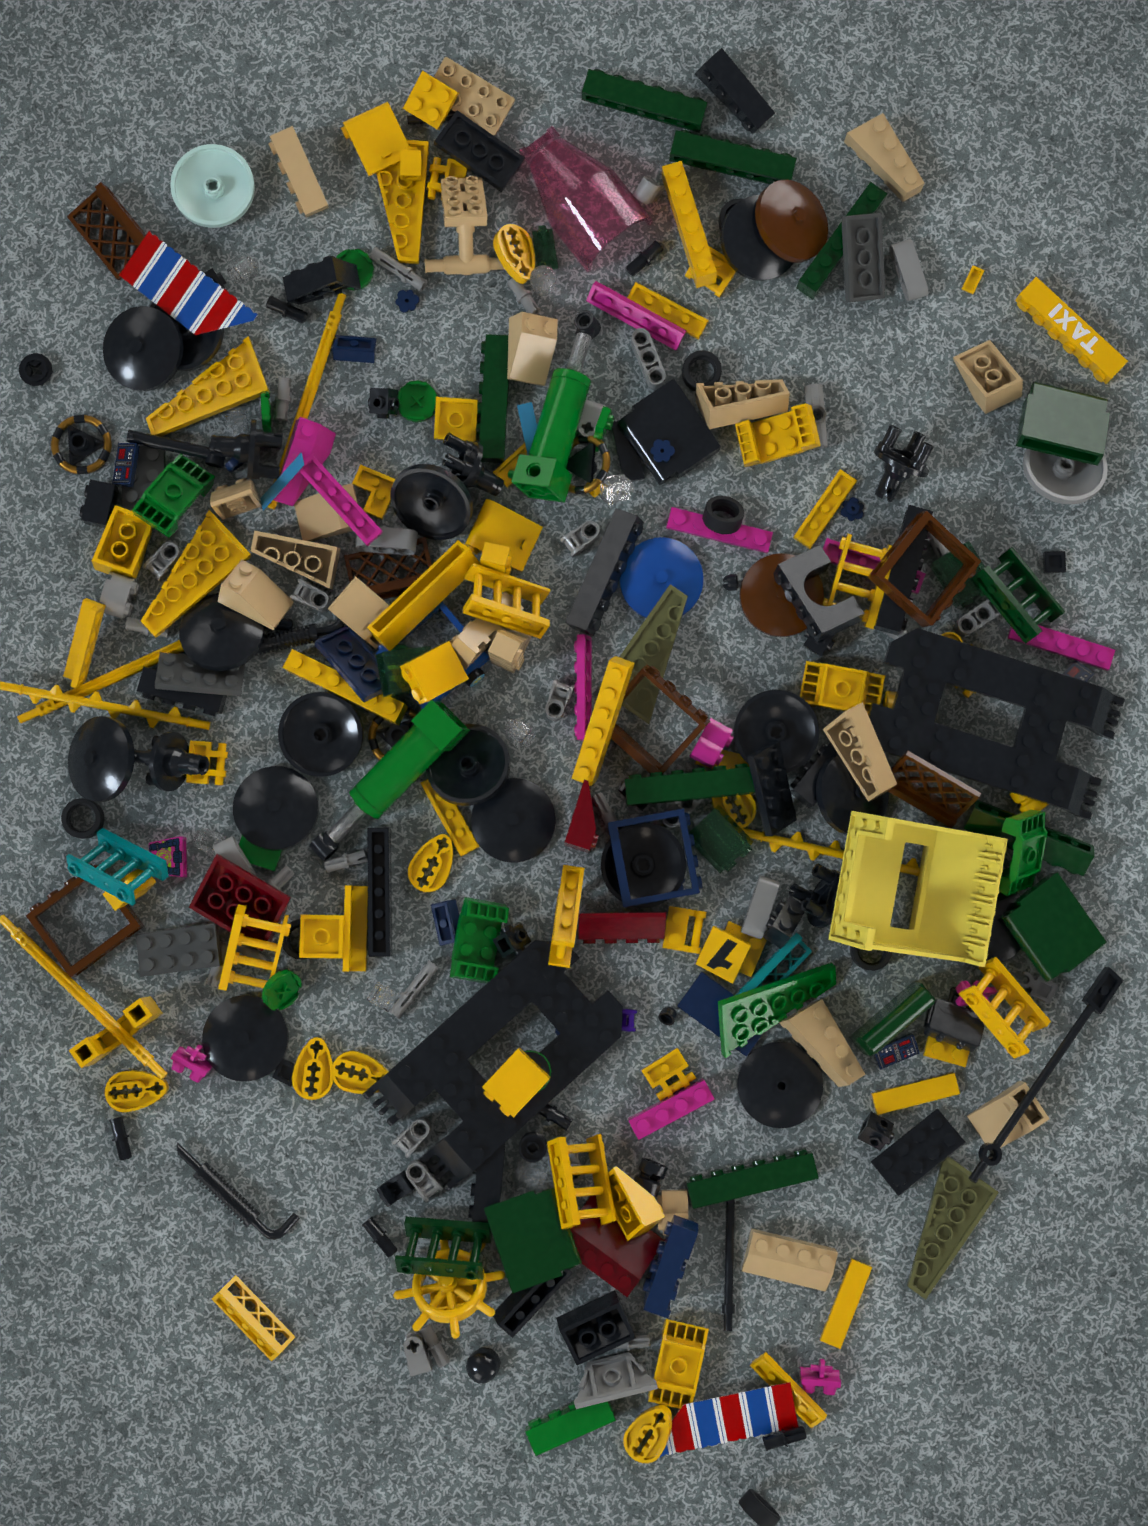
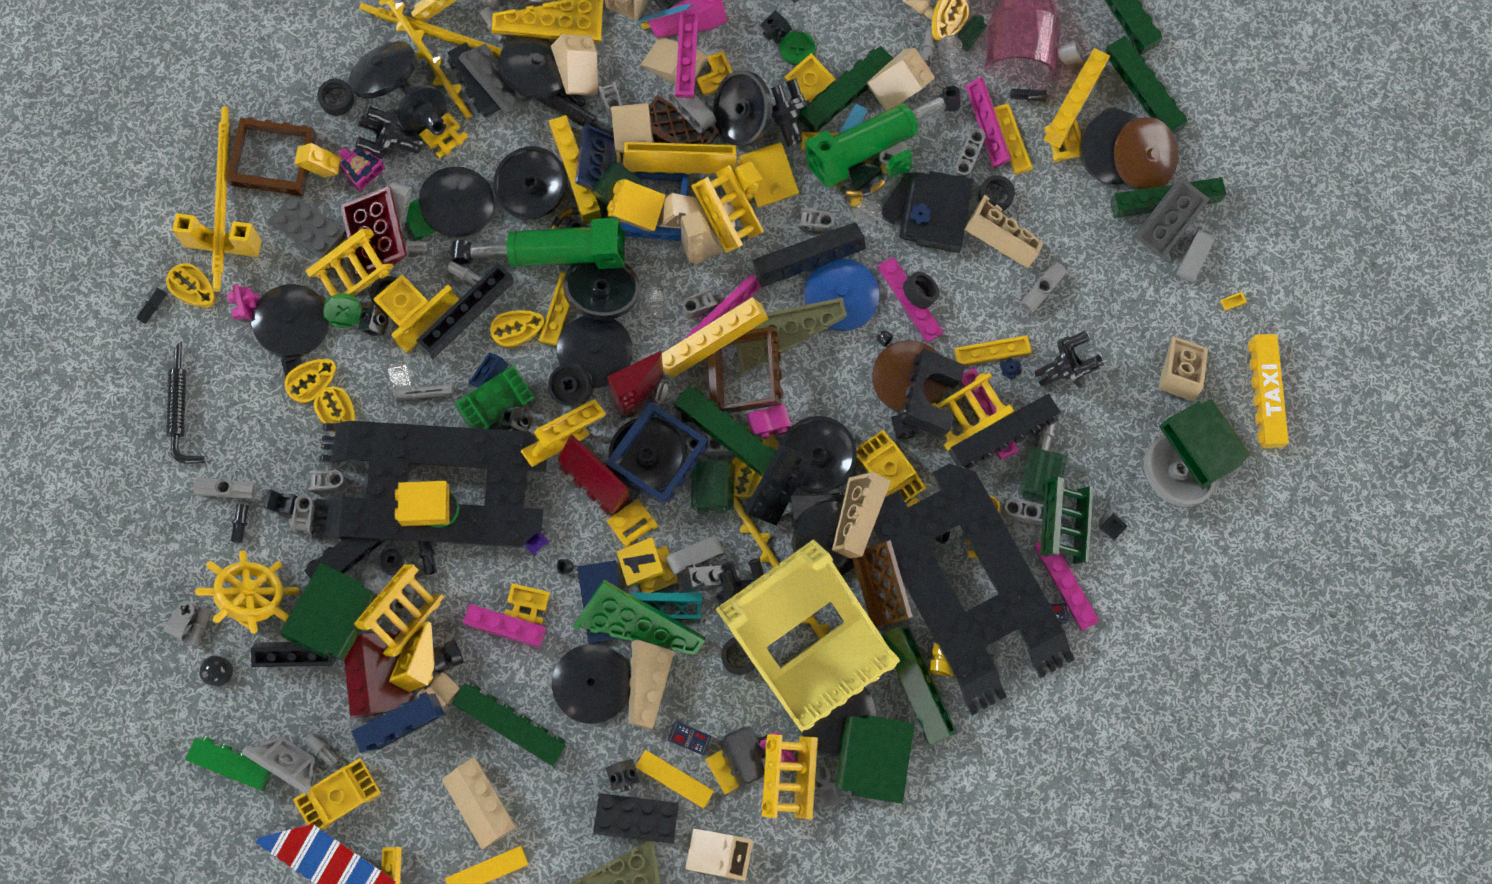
camera: 40 degrees right, 10 degrees down
(121, 850) = (336, 132): teal fence -> none
(164, 809) = (387, 133): none -> black piece
(248, 1323) = (102, 495): yellow fence -> none
(304, 557) = (631, 71): tan wedge -> none
(314, 973) = (373, 321): none -> black brick
(329, 1231) = (213, 487): none -> light grey piece
(444, 1230) = (275, 551): dark green fence -> none
(474, 677) = (661, 241): black tile -> none
(531, 880) = (560, 384): none -> black wheel
(595, 1328) = (310, 717): black slope -> none
(639, 1428) = (267, 813): yellow piece -> none
(728, 1306) = (408, 794): black bar -> none
(735, 91) = (1187, 47): black wedge -> none
(778, 436) = (1005, 276): yellow plate -> none
(884, 153) = (1249, 169): tan wedge -> none
(892, 1019) = (707, 708): dark green piece -> none
(956, 585) = (1051, 436): reddish brown window -> none
(1028, 850) = (905, 686): green plate -> none
(1096, 1001) = (857, 837): black bar -> none

